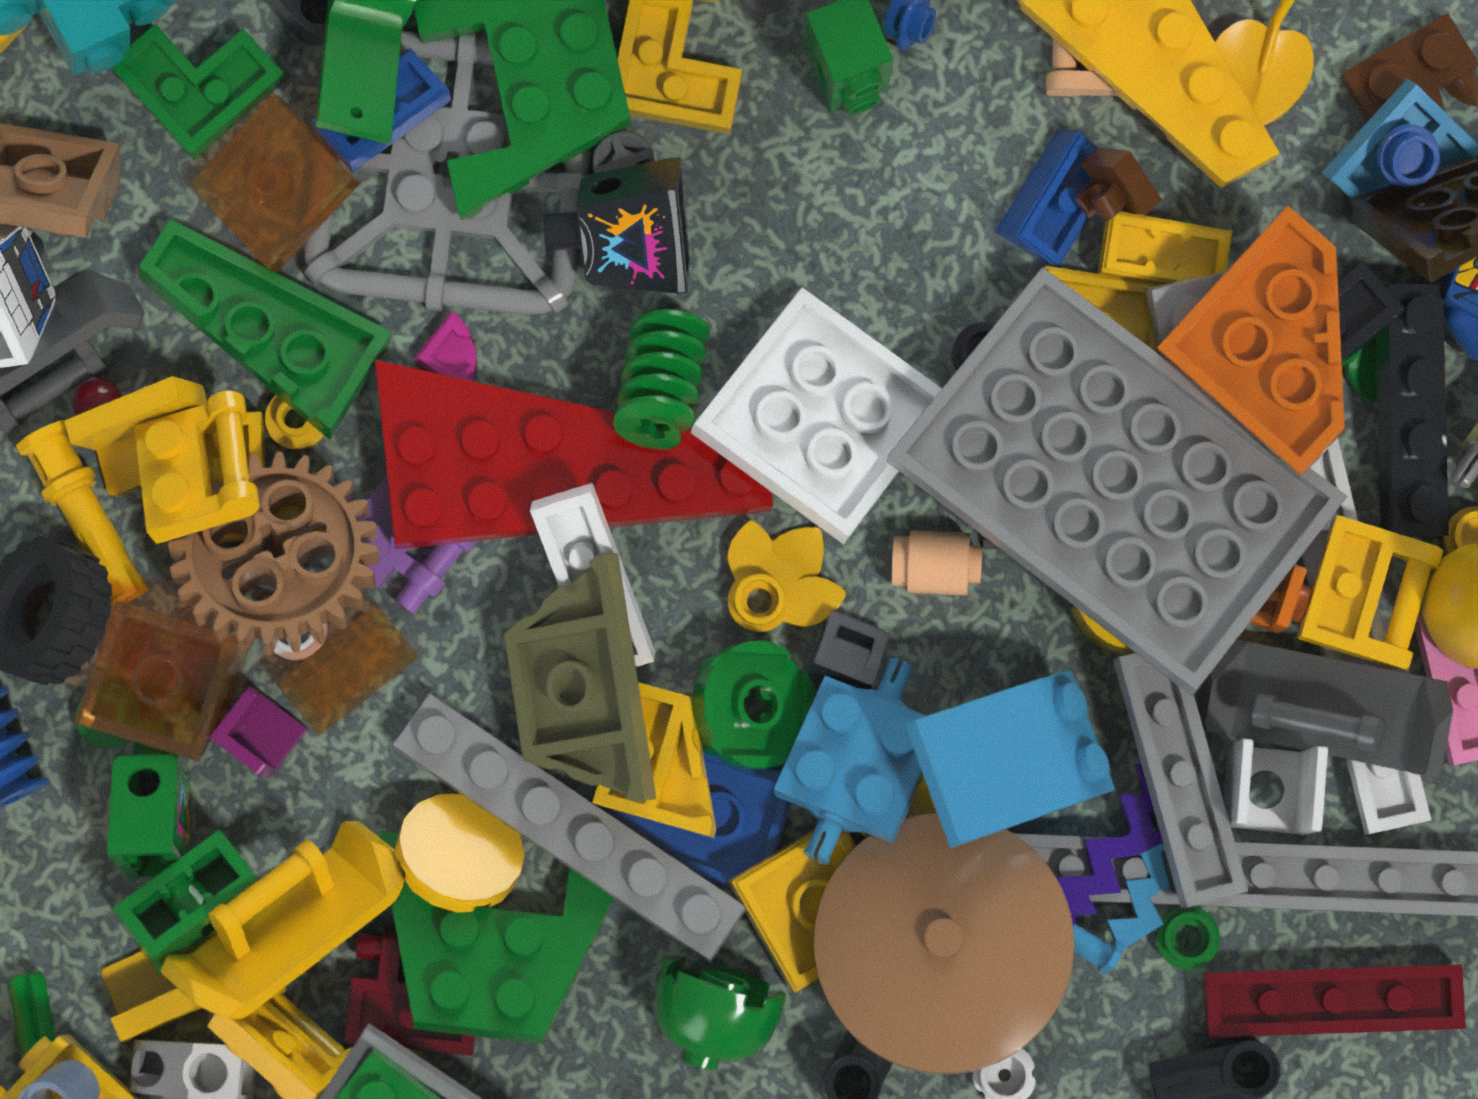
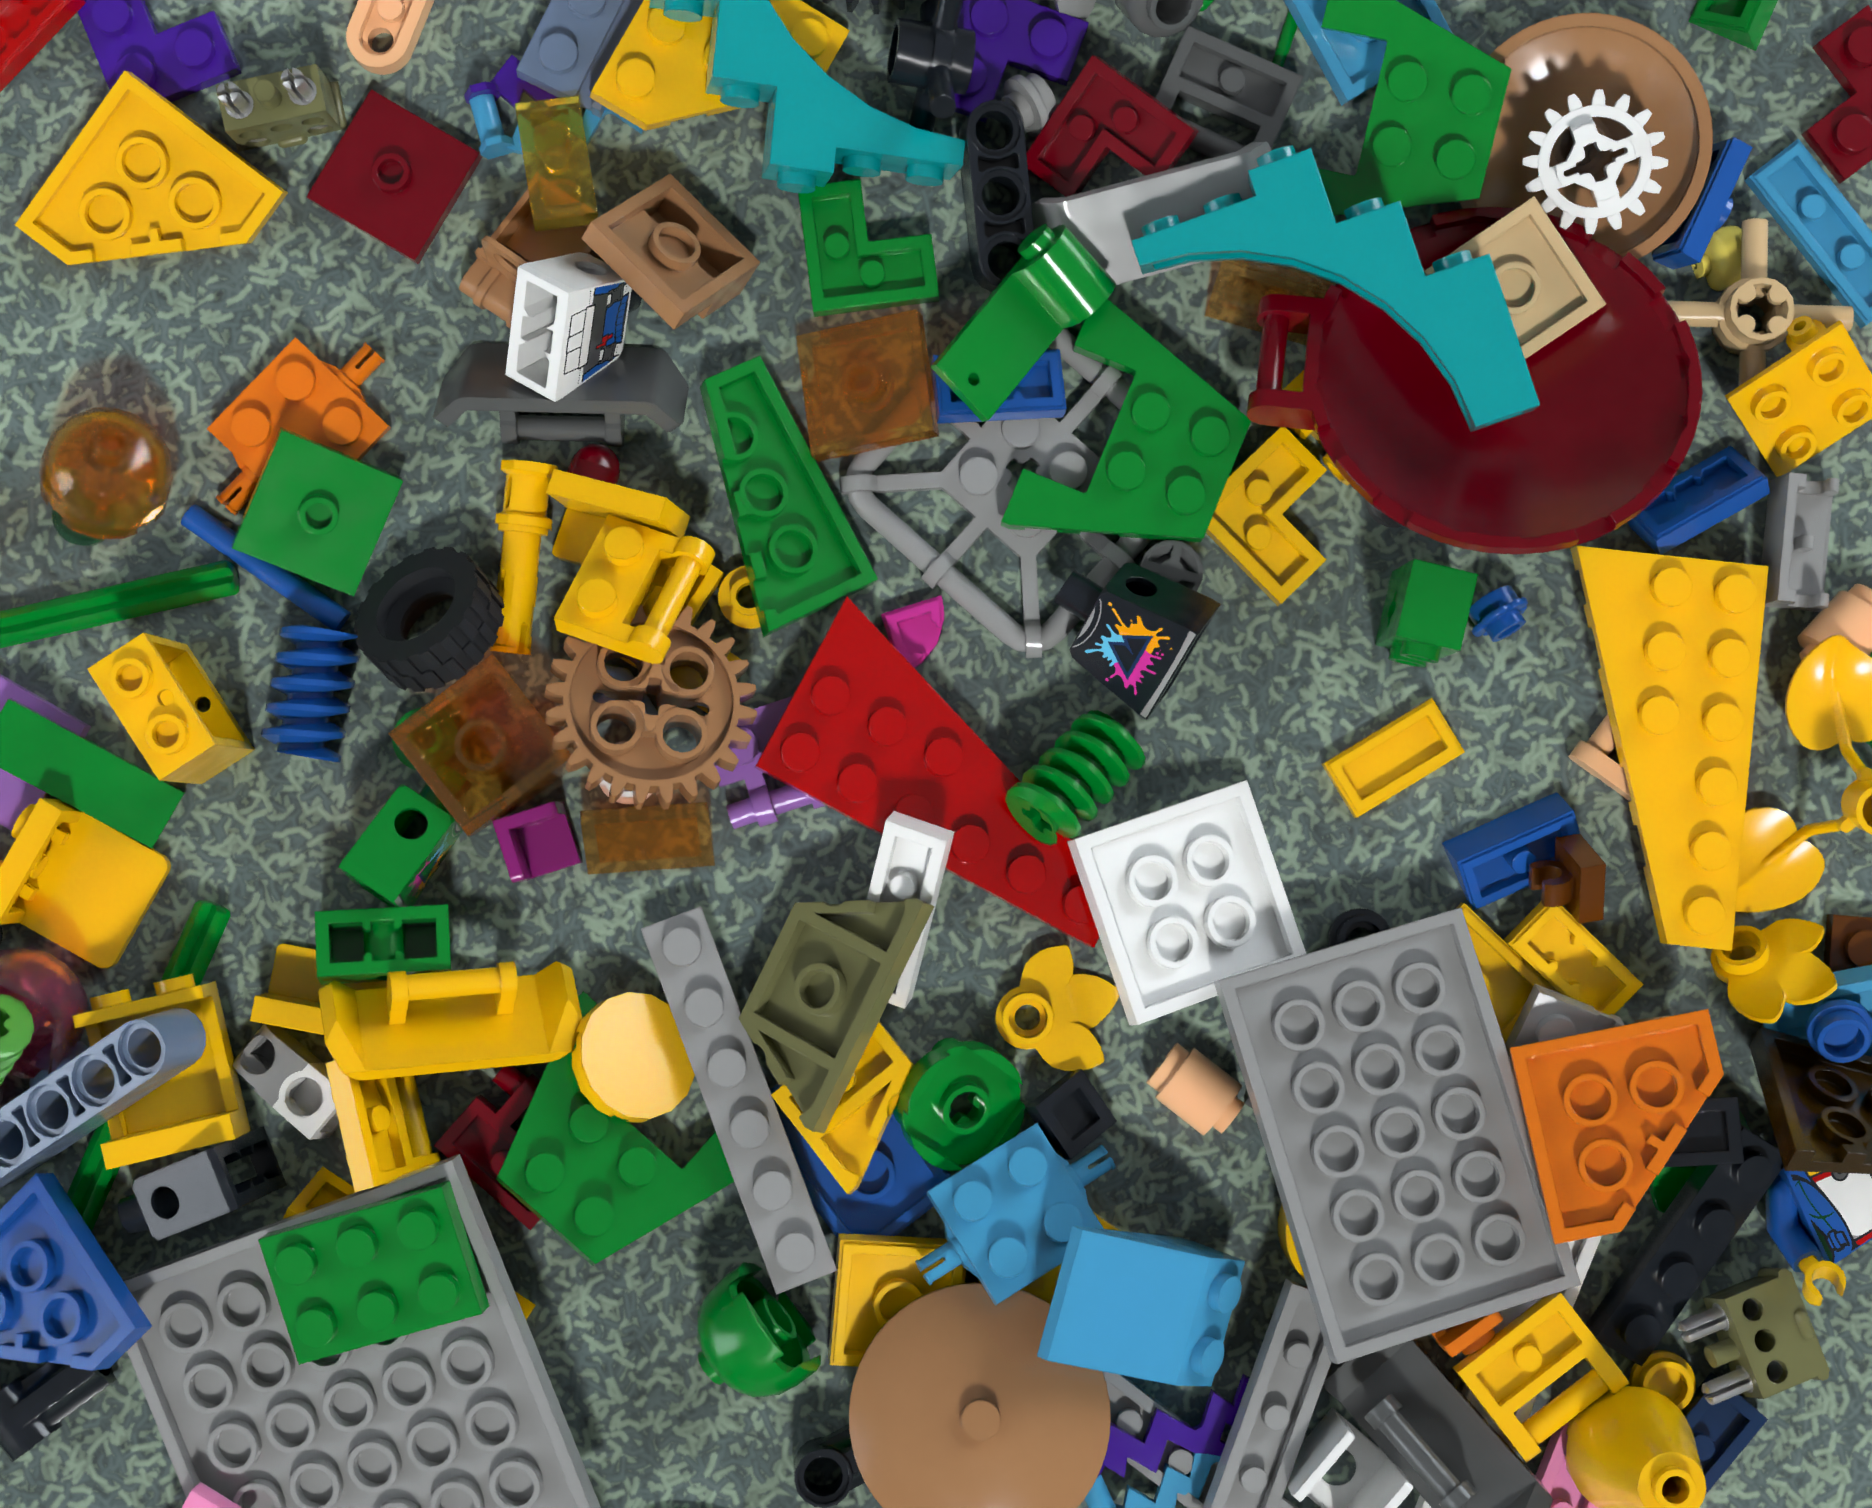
camera: 35 degrees right, 5 degrees up
(907, 191) = (1393, 758): none -> yellow tile
(1323, 145) = (1774, 968): none -> yellow plate

